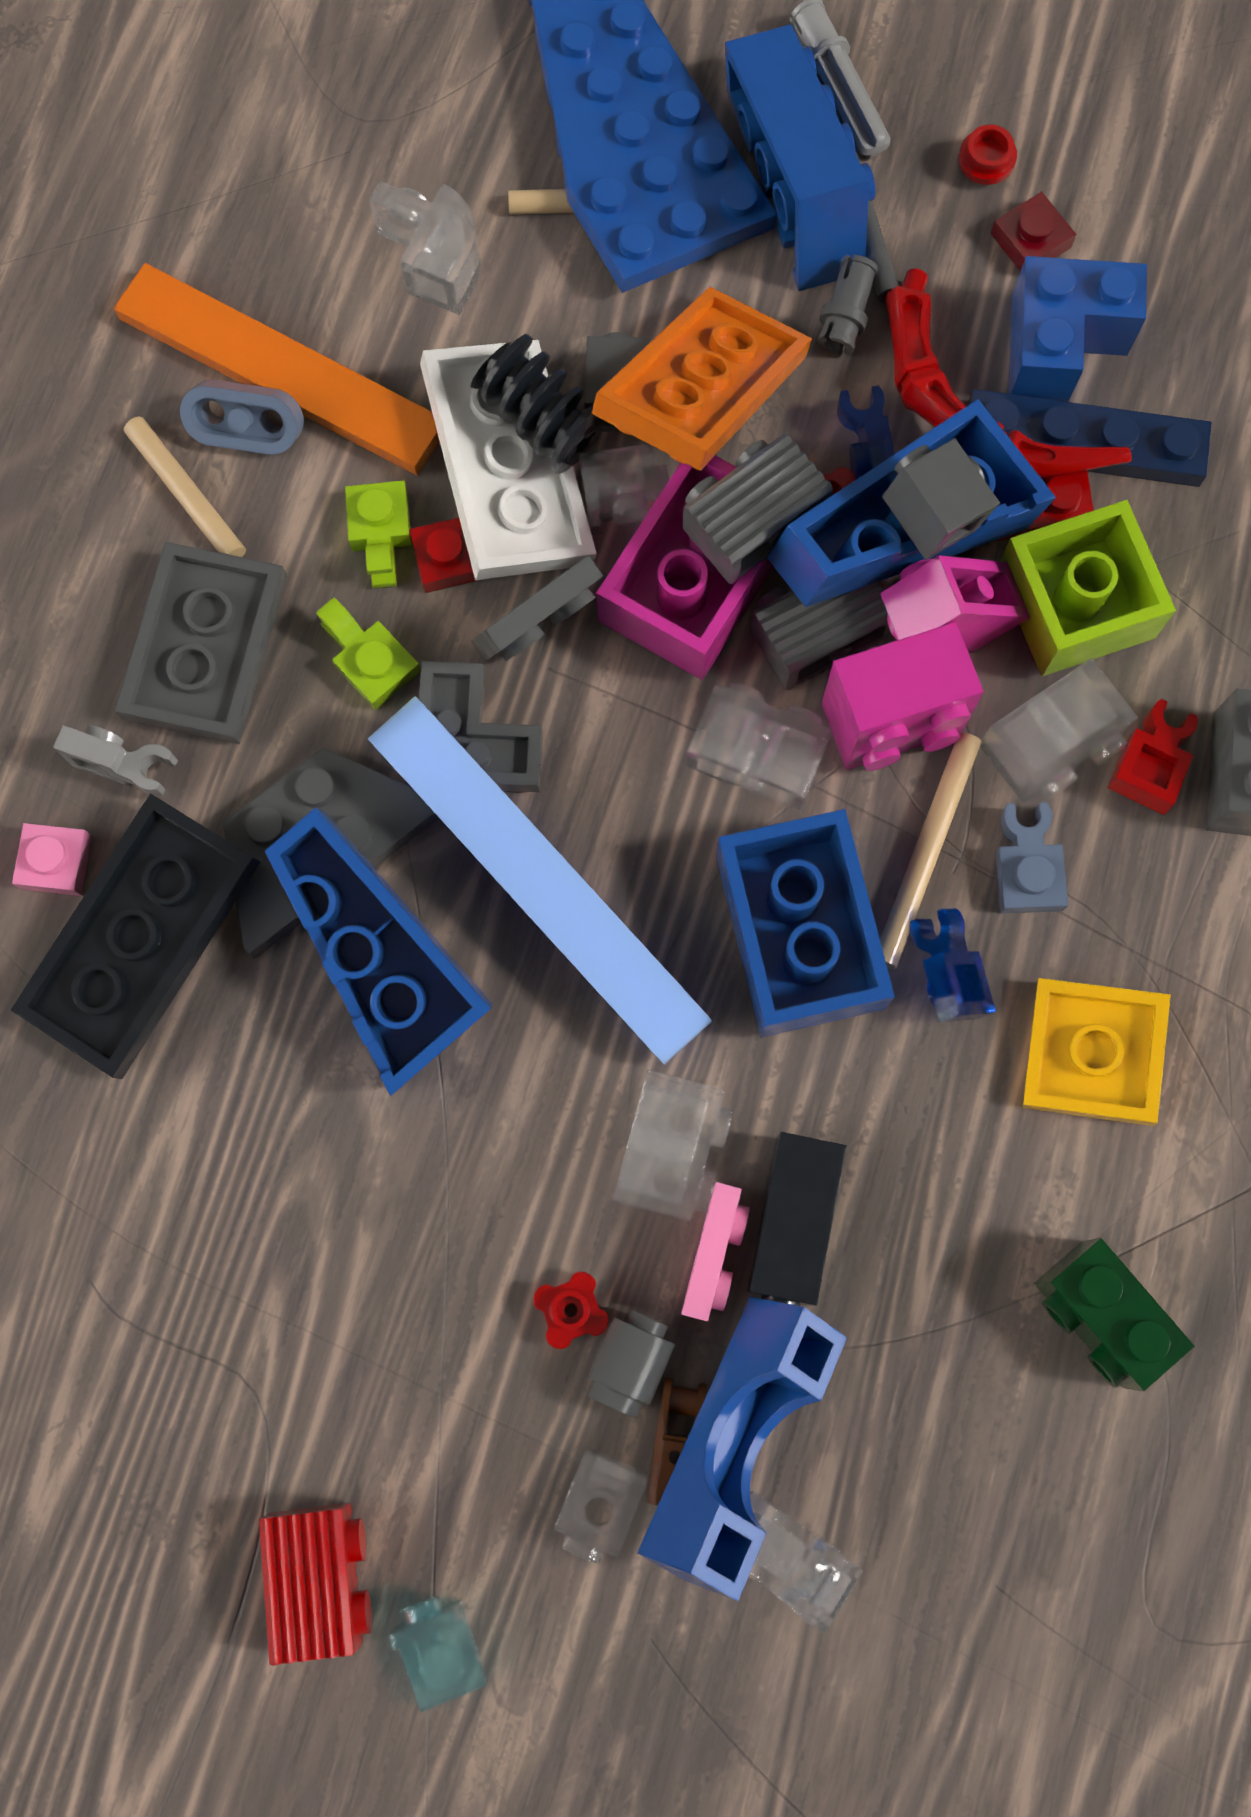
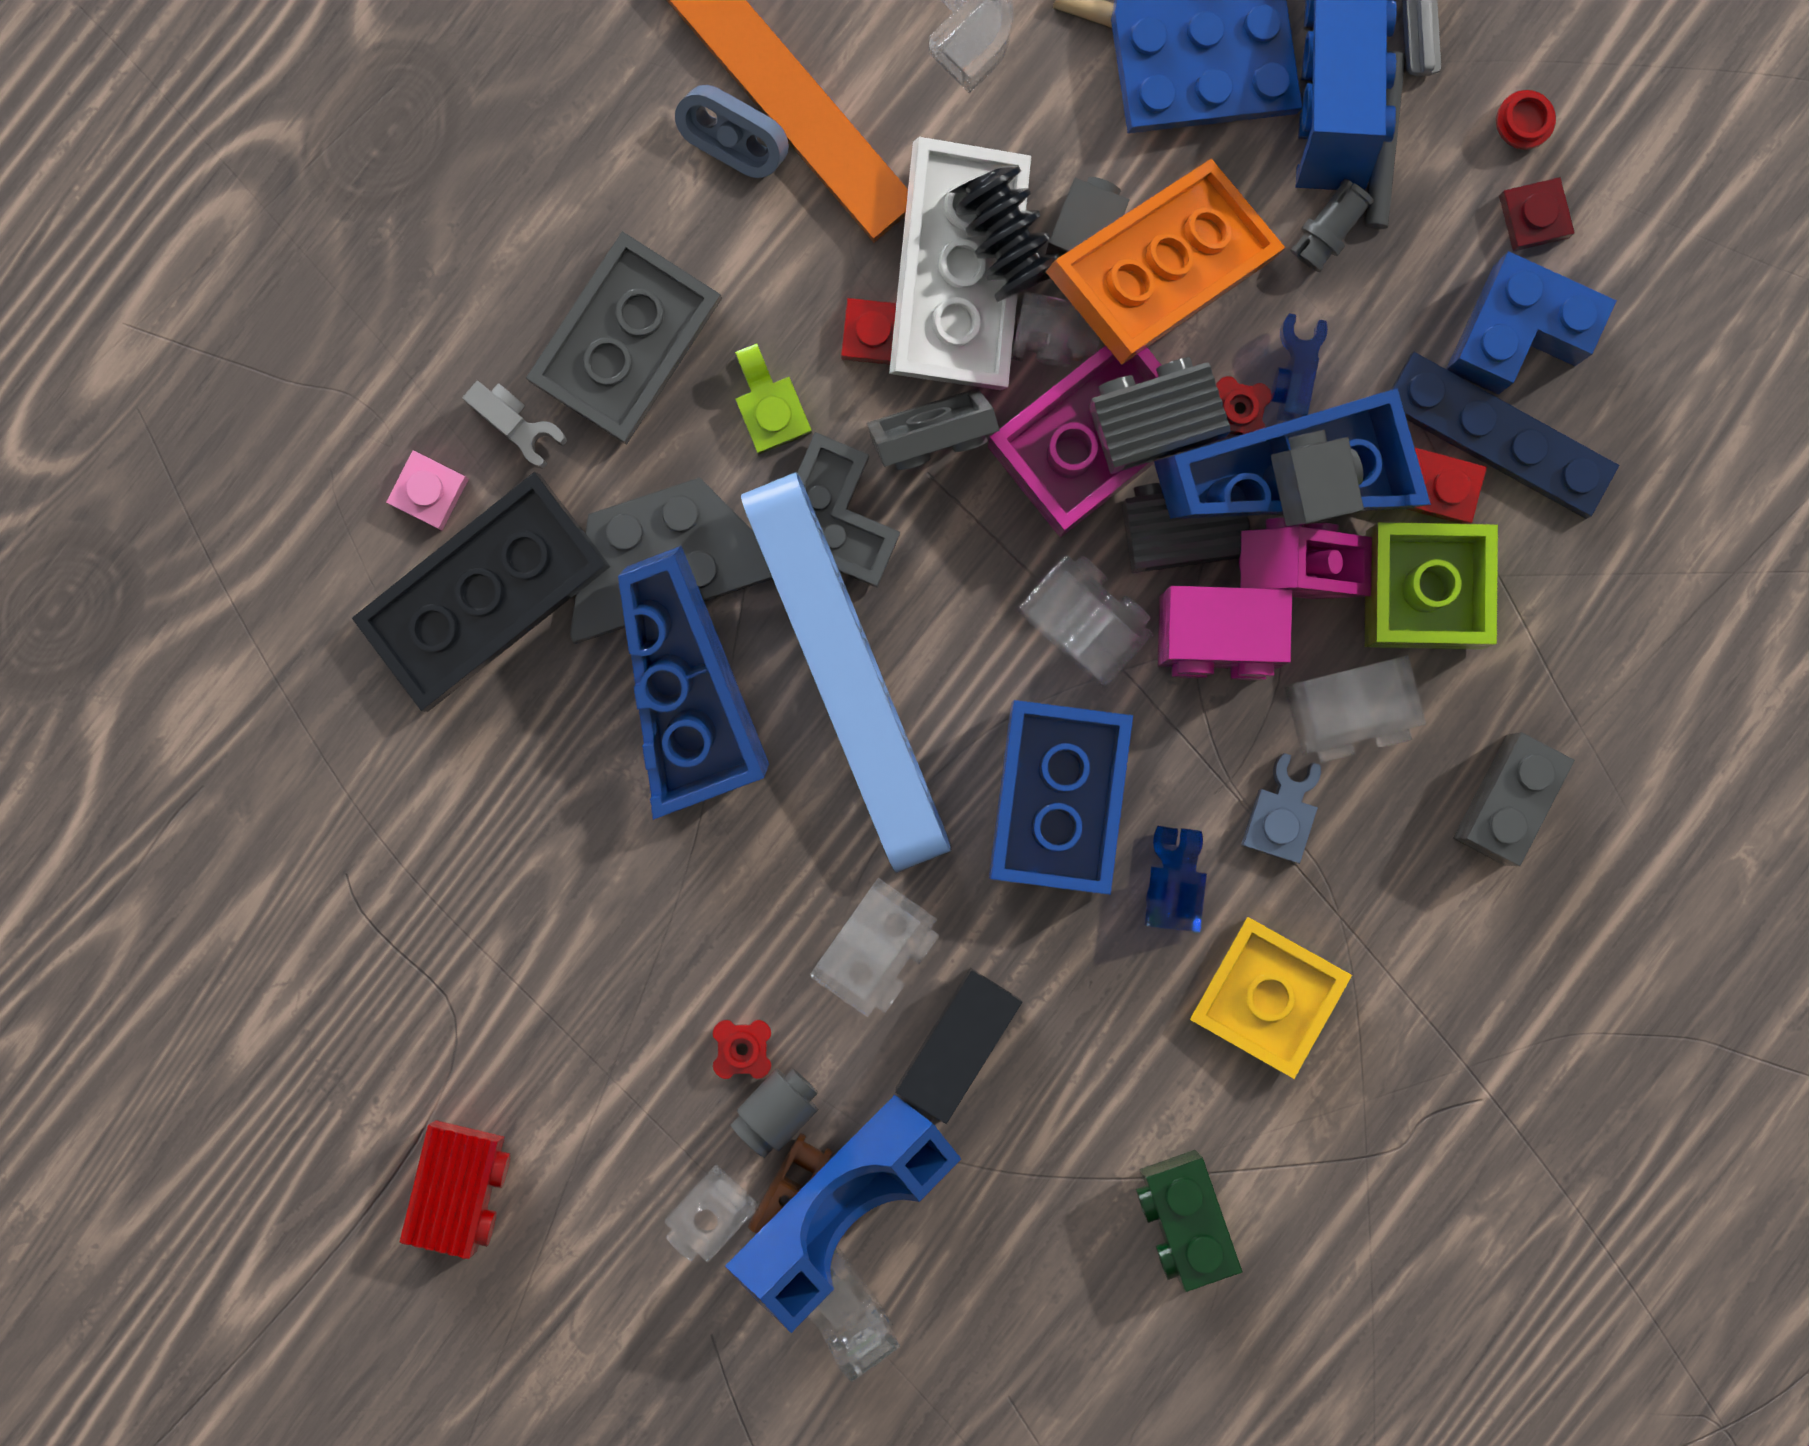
camera: 15 degrees right, 10 degrees up
(183, 487) = (655, 179): tan bar -> none
(377, 523) = (821, 278): lime plate -> none
(438, 1652) = (537, 1280): clear light blue bracket -> none
(723, 1224) = (865, 1068): bright pink plate -> none
(928, 847) = (1199, 766): tan bar -> none
(930, 396) = (1370, 350): red animal -> none
(1152, 762) = (1427, 765): red plate -> none

